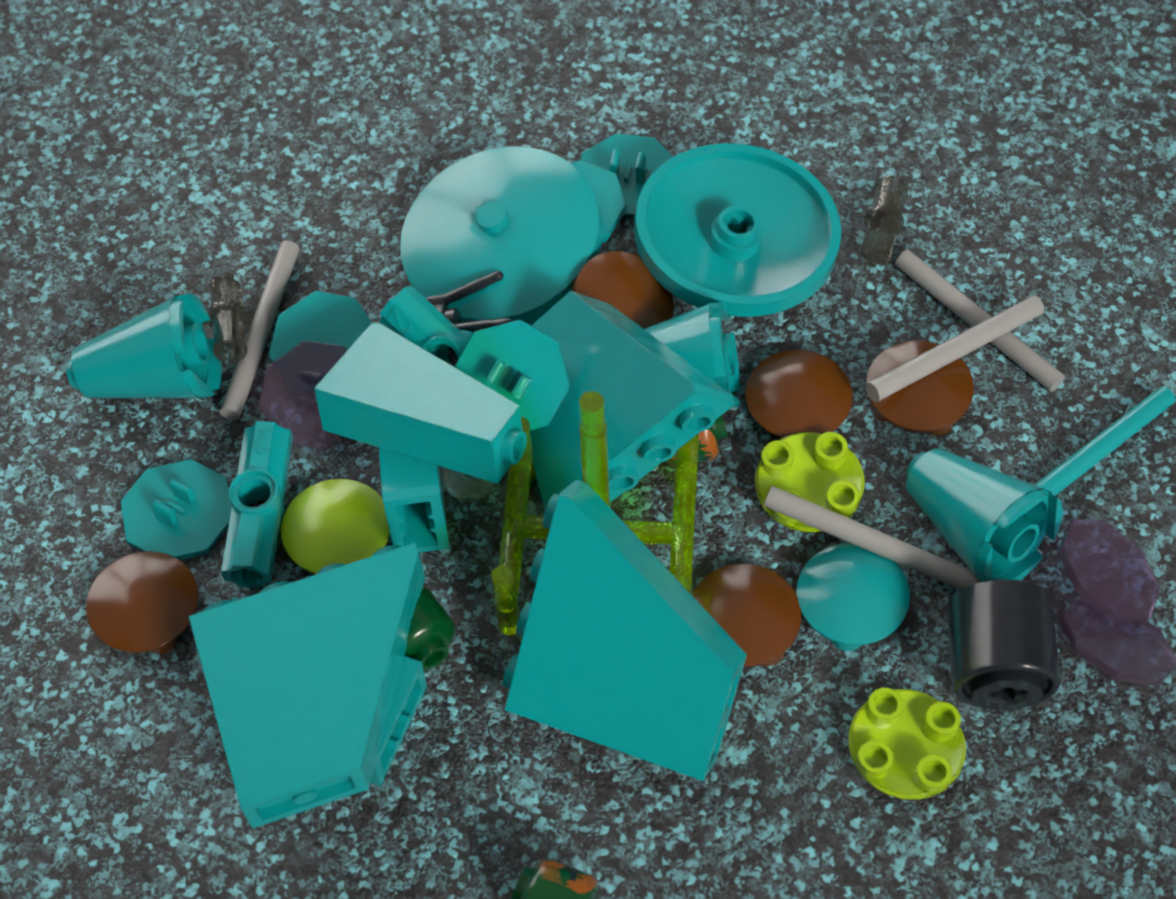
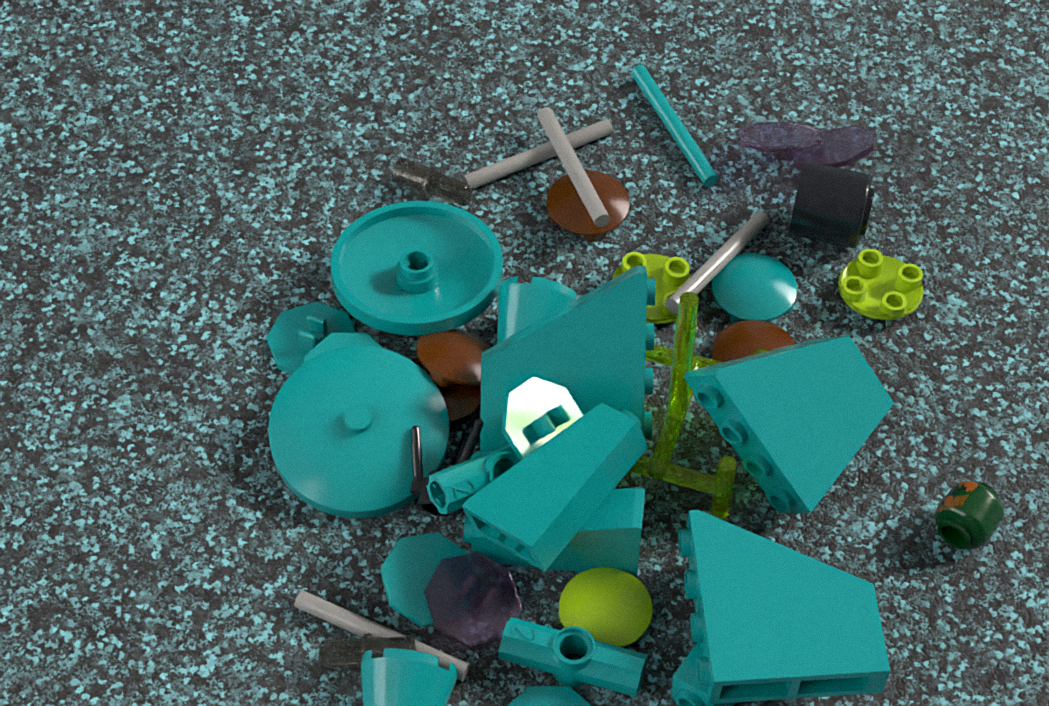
camera: 80 degrees left, 5 degrees down
(798, 393) = (574, 266): reddish brown dish -> none
(984, 513) = (718, 189): teal cone -> none

